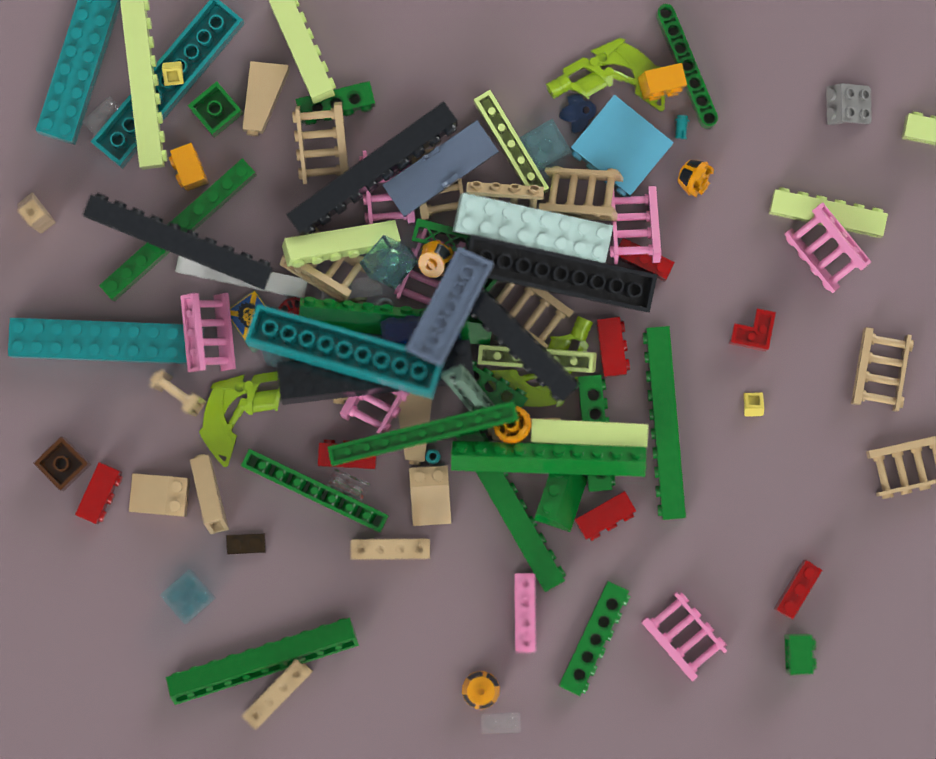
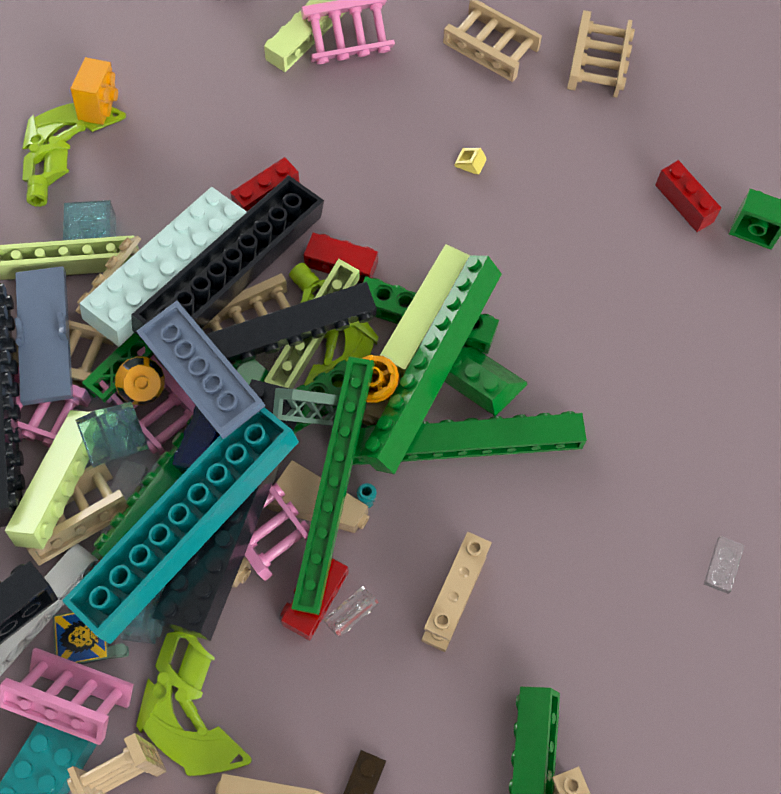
camera: 70 degrees left, 20 degrees down
(314, 490) = (336, 656): green brick -> none
(430, 495) = (410, 520): tan slope -> none
(480, 690) = (674, 570): light orange cone -> none
(525, 612) = (603, 470): bright pink fence -> none
(575, 112) = (76, 189): dark blue plate -> none
(580, 686) = (662, 428): green brick -> none
(588, 210) = (148, 190): tan fence -> none
(605, 516) = (525, 343): red brick -> none
(622, 142) = (137, 160): medium azure panel -> none
(651, 232) = (221, 158): bright pink fence -> none
(665, 423) = (430, 236): green brick -> none
(665, 639) = (691, 344): bright pink fence -> none
(681, 127) = (146, 100): teal pin -> none
(687, 56) = (63, 70): green beam -> none
(694, 177) = (208, 107): light orange cone -> none
(759, 335) = (402, 125): red panel -> none

